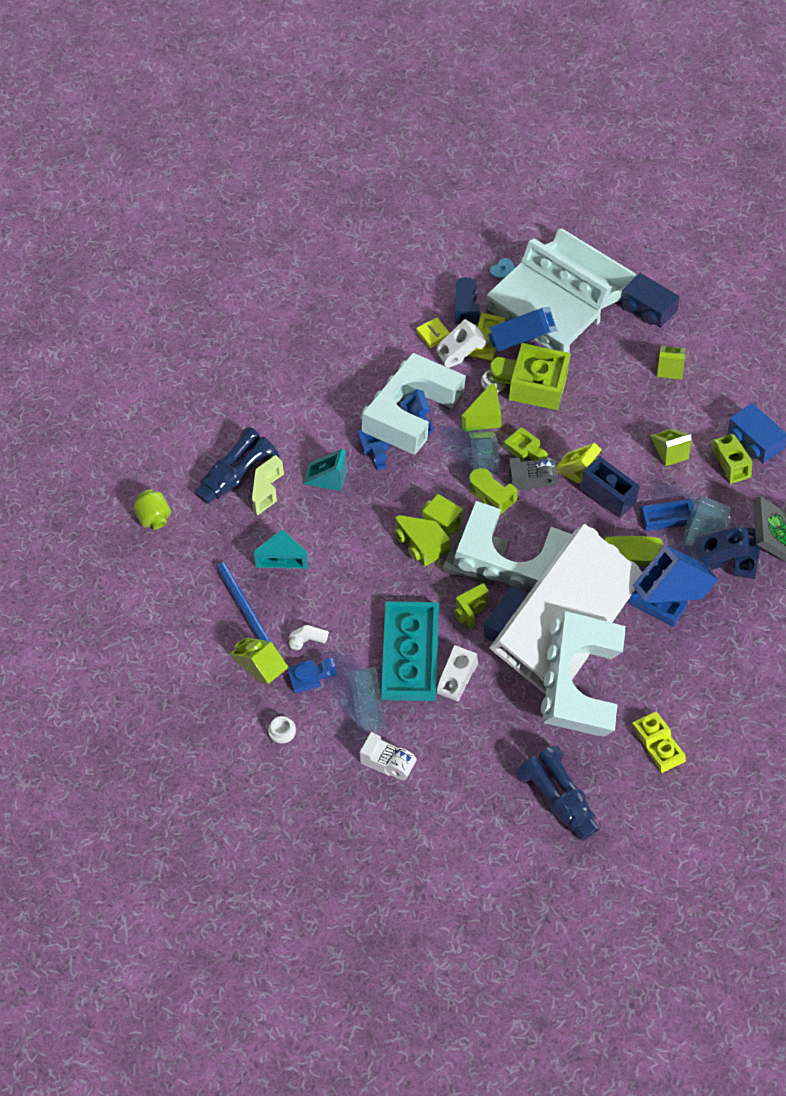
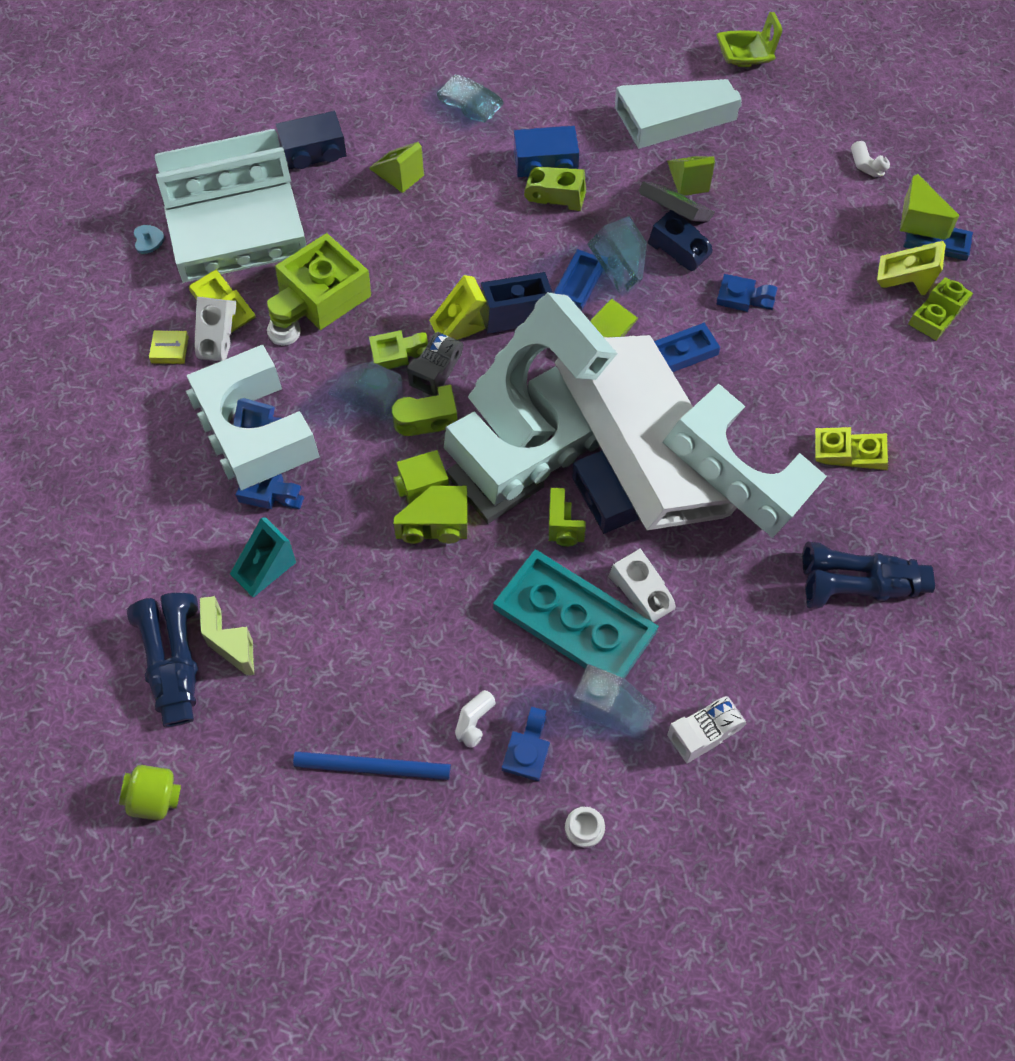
camera: 60 degrees left, 5 degrees up
(259, 659) = (469, 793): lime slope -> none
(281, 552) = (338, 673): teal slope -> none
(464, 298) = (160, 293): dark blue leg -> none
(484, 412) = (321, 355): lime slope -> none
(522, 329) = (261, 251): blue slope -> none
(568, 513) = (502, 390): none -> light aqua arch
(672, 446) = (500, 224): lime slope -> none
(674, 578) = (679, 314): blue slope -> none
(723, 546) = (672, 247): dark blue leg -> none
(737, 612) = (741, 293): none -> blue plate
(767, 363) = (473, 98): none -> clear light blue slope

